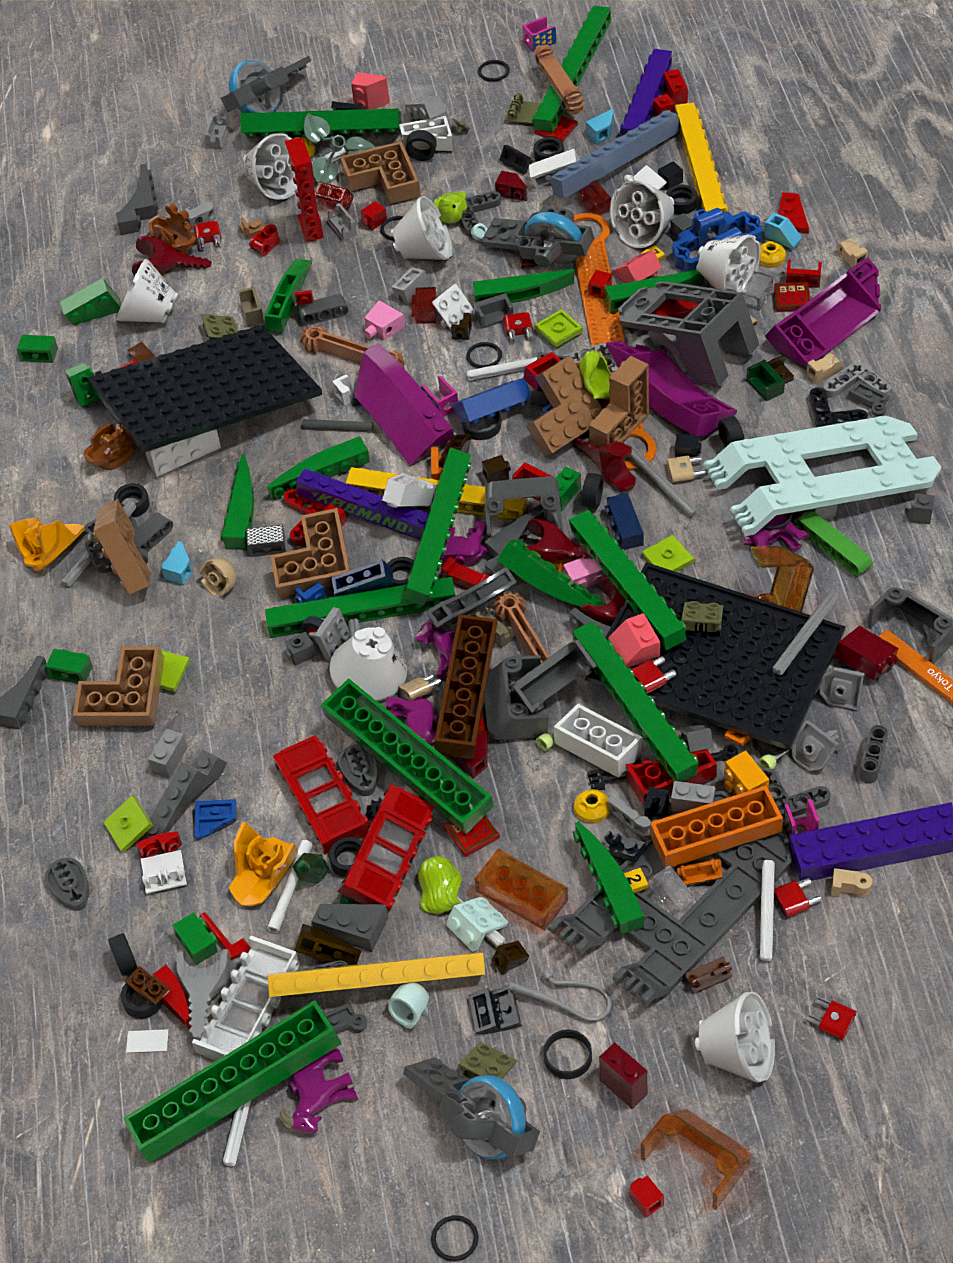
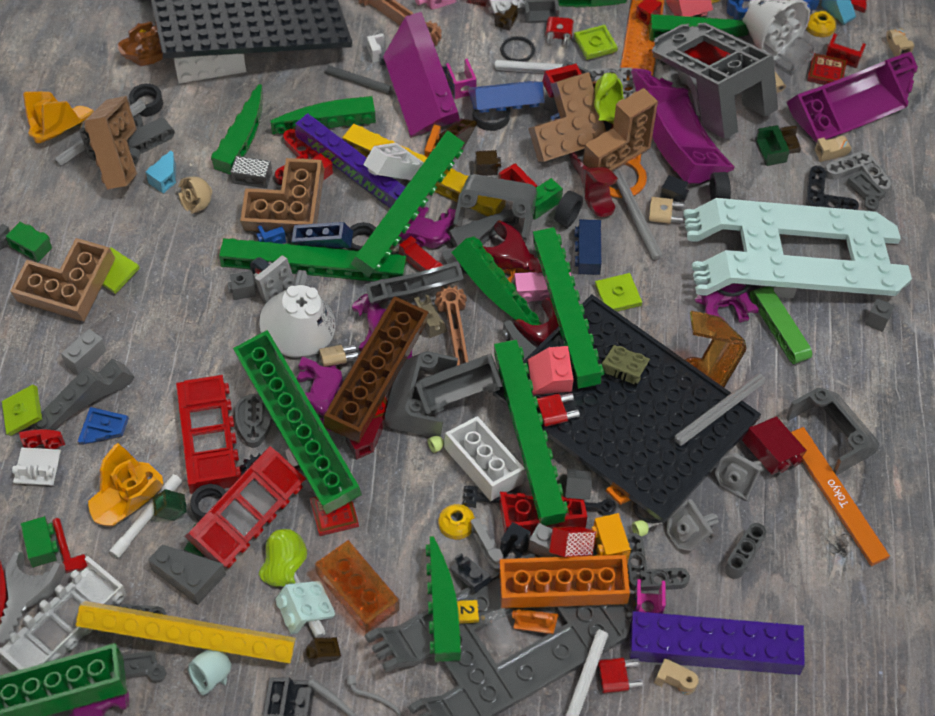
camera: 10 degrees right, 5 degrees up
(324, 946) = (153, 587): dark brown slope -> none
(712, 787) = (572, 541): none -> red panel

